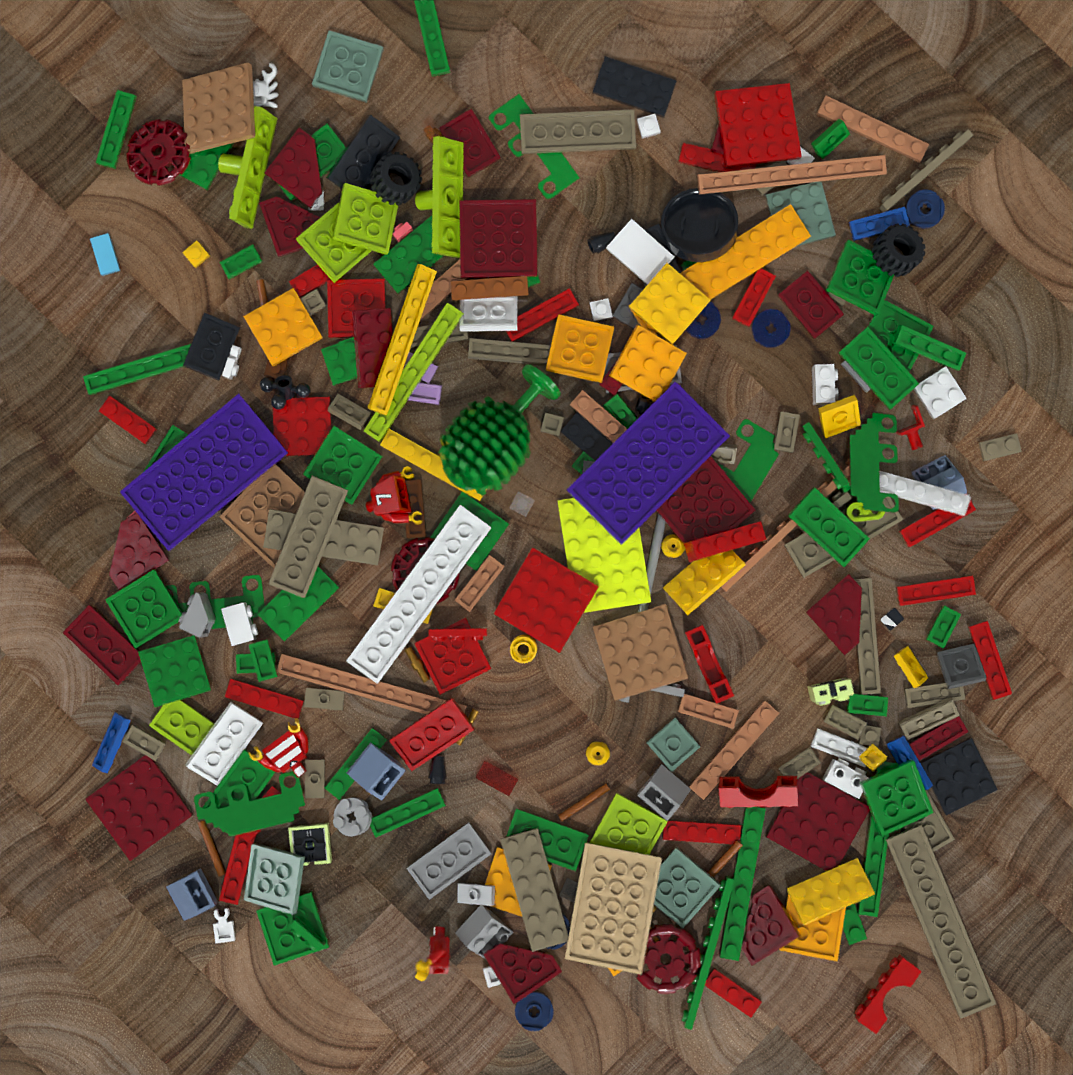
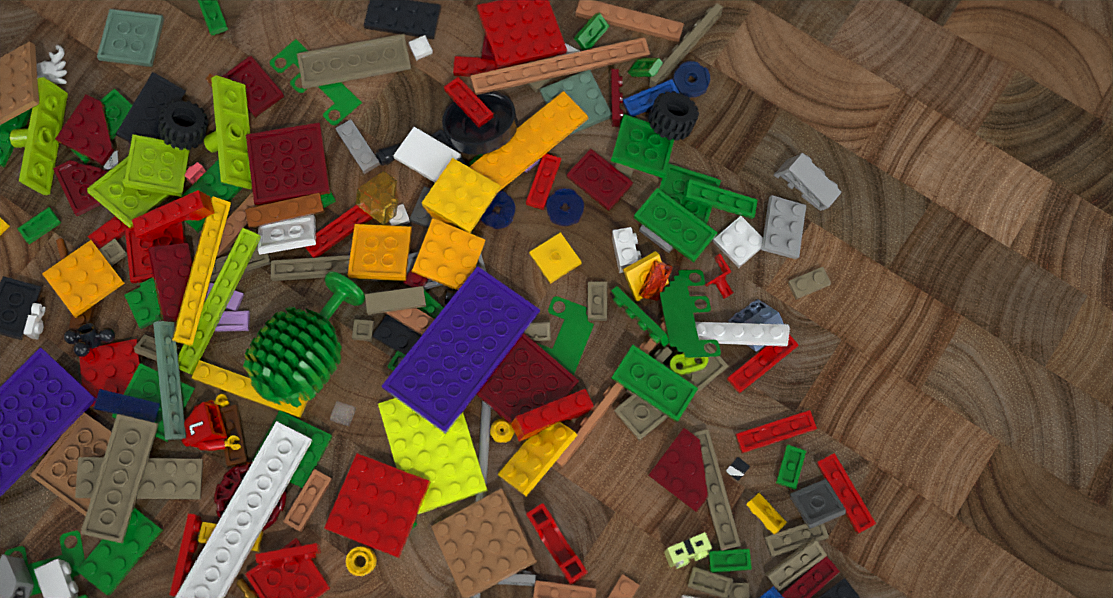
camera: 10 degrees left, 15 degrees down
(319, 467) = (126, 406): none -> clear blue plate
(361, 448) = (169, 381): none -> sand green plate
(364, 609) = (187, 548): none -> red plate
(388, 277) = (190, 207): none -> red arch
(569, 227) = (357, 146): none -> light grey plate
(584, 293) = (378, 197): none -> clear yellow brick
(589, 403) = (395, 300): none -> dark tan tile
(691, 202) = (468, 102): none -> red plate
(752, 380) = (555, 258): none -> yellow plate
(843, 217) = (616, 97): none -> dark red plate
(848, 422) = (655, 280): none -> clear red tile
(879, 190) = (645, 67): none -> green plate
(986, 386) = (783, 227): none -> light grey plate
(1022, 342) = (809, 180): none -> light grey wedge

